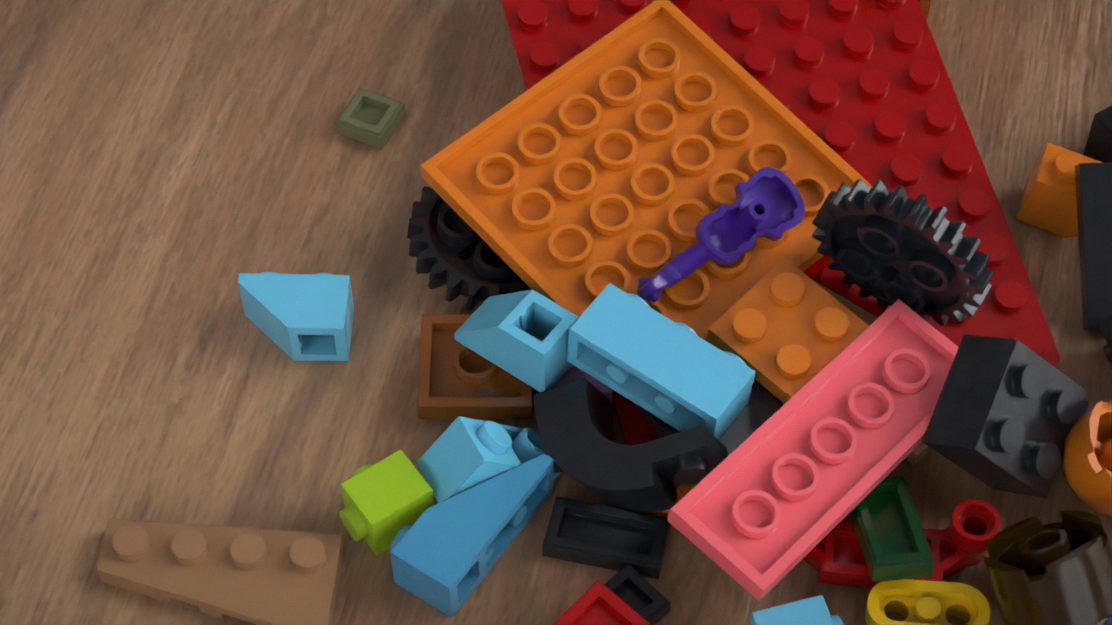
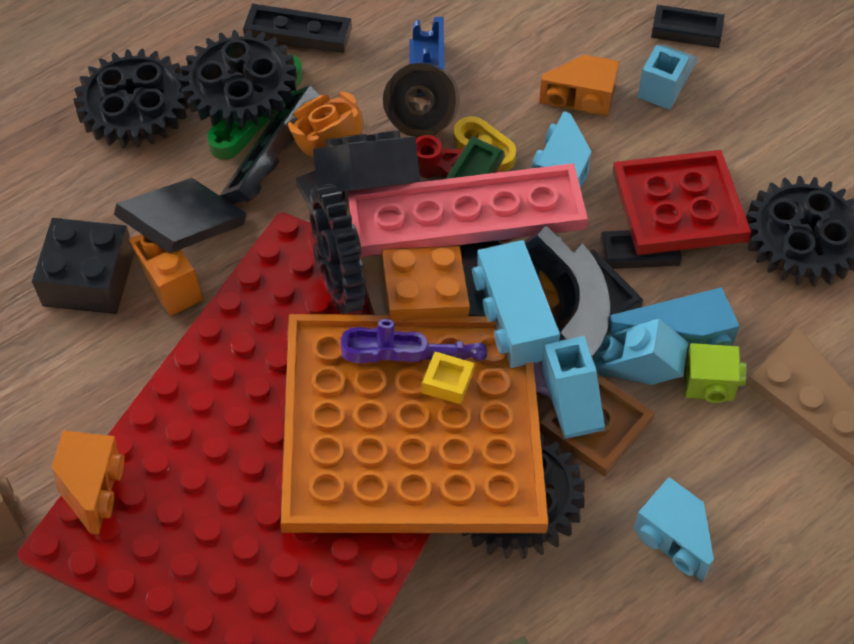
camera: 140 degrees left, 5 degrees up
(649, 225) = (447, 377): none -> yellow plate

